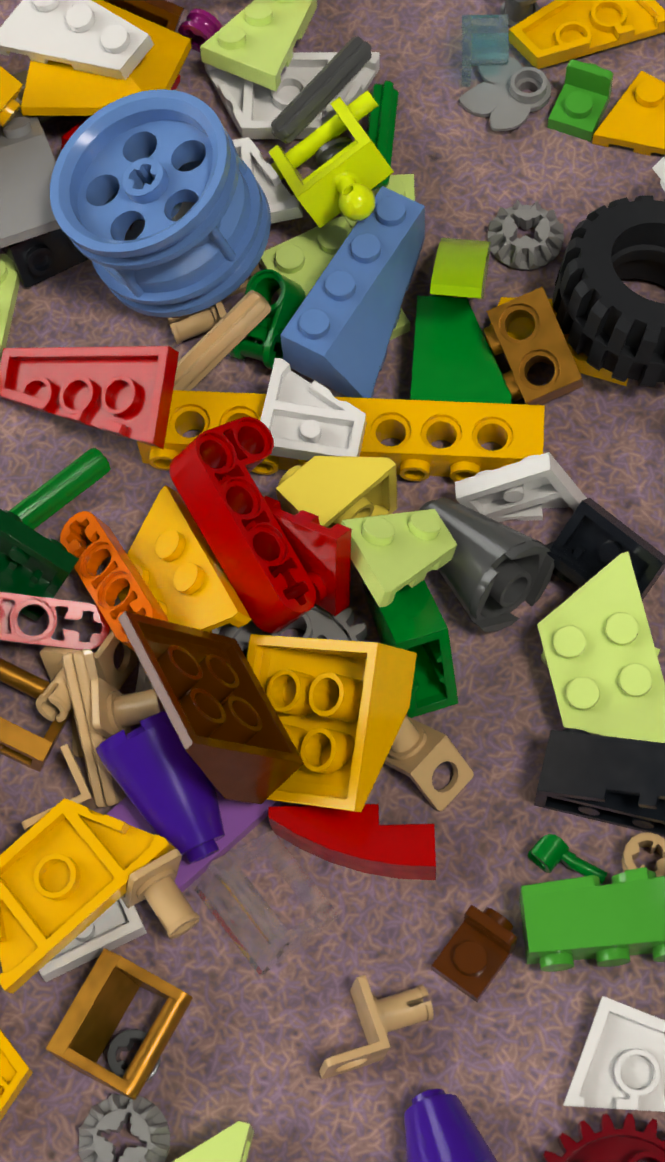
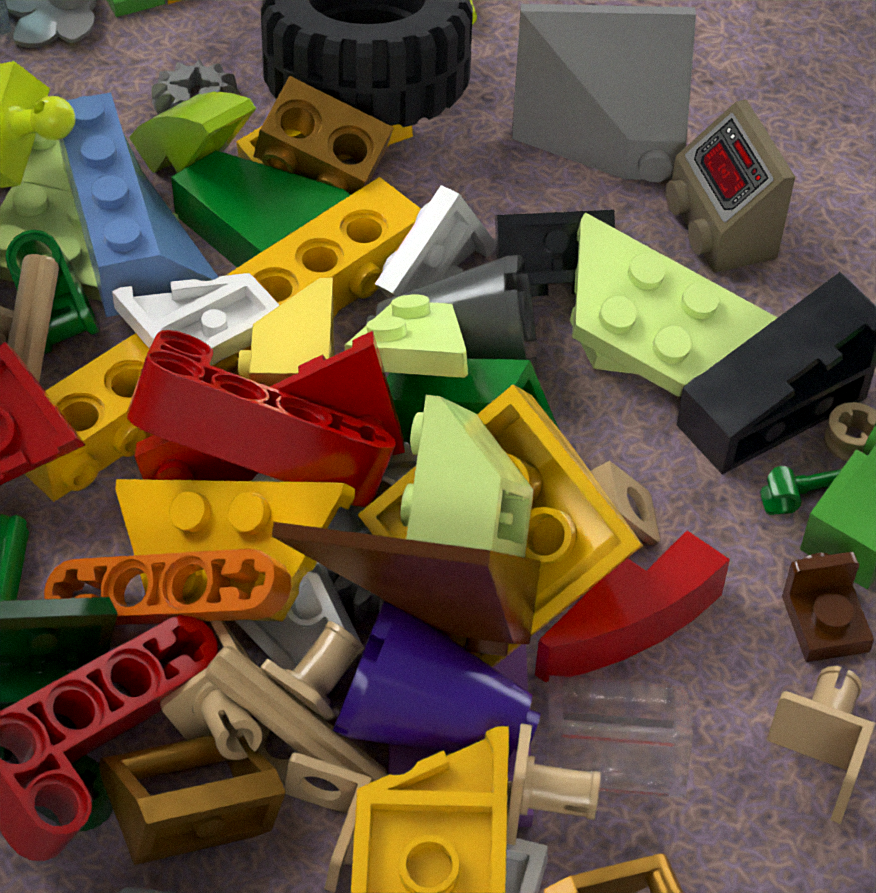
camera: 55 degrees left, 15 degrees down
(278, 683) = (464, 484): none -> yellowish green slope

